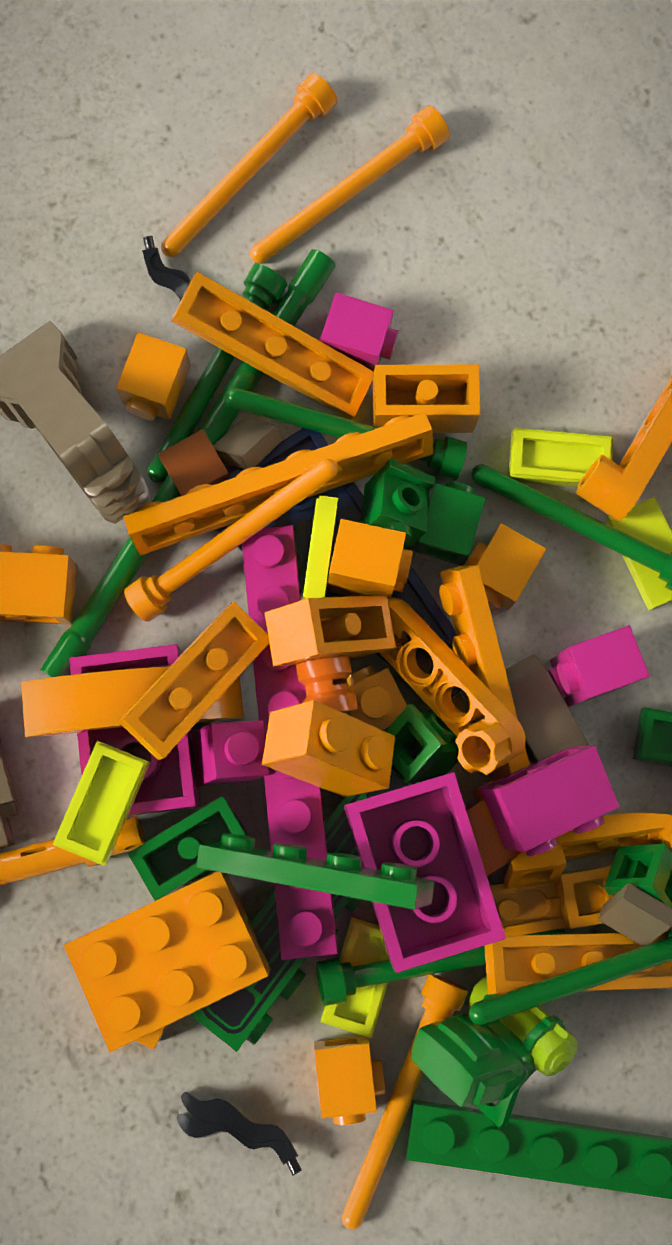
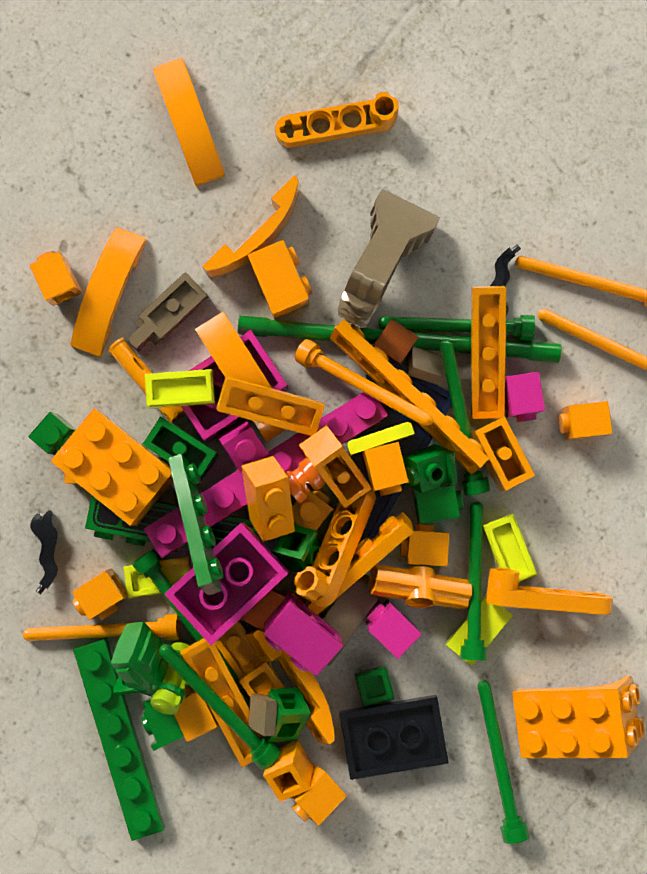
camera: 70 degrees right, 5 degrees up
(69, 1033) = (52, 433): none -> green brick
(153, 377) = (435, 292): light orange brick -> none
(433, 267) = (585, 420): none -> light orange brick
(556, 602) = (419, 587): none -> light orange piece
(587, 1075) = (160, 725): none -> green brick
(592, 1018) = (194, 716): none -> light orange brick

